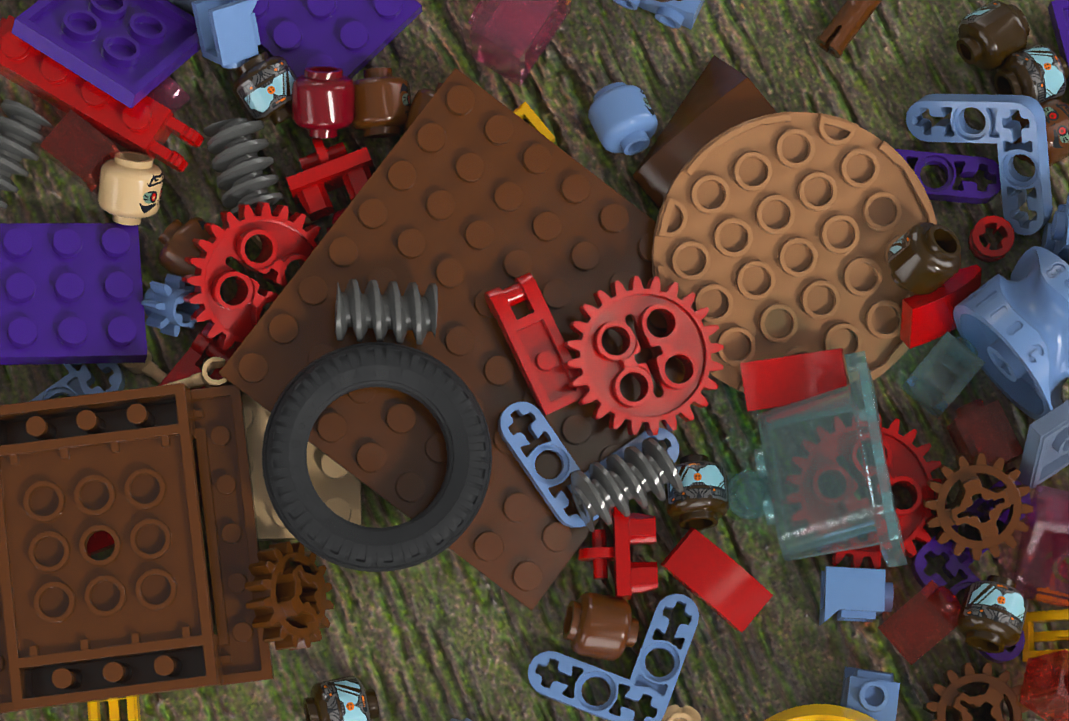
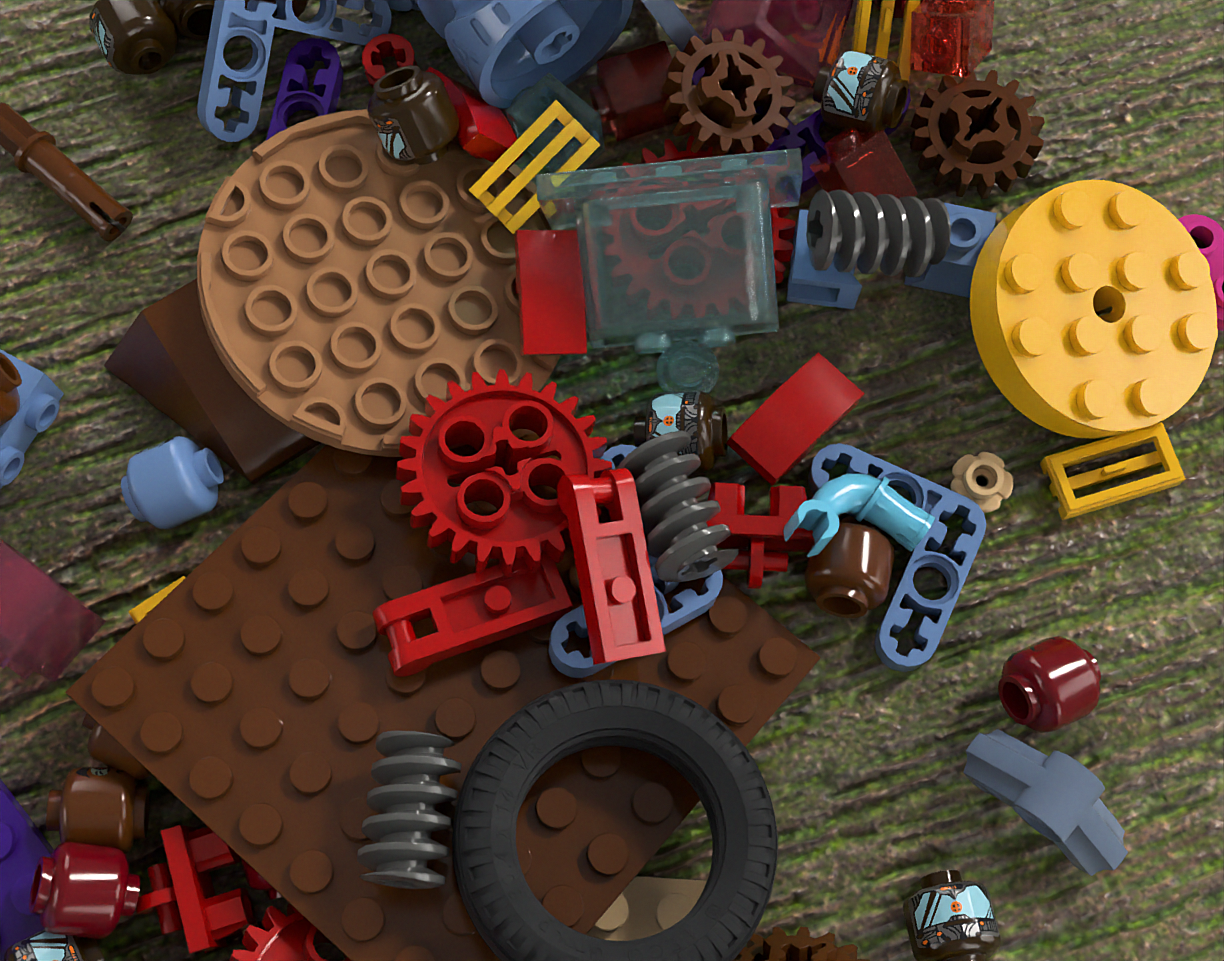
camera: 85 degrees left, 5 degrees down
(572, 438) = (612, 565): none -> plate
(651, 629) = (866, 499): none -> medium azure piece
(862, 624) = (876, 232): none -> dark grey piece
(865, 333) = (571, 129): none -> yellow tile

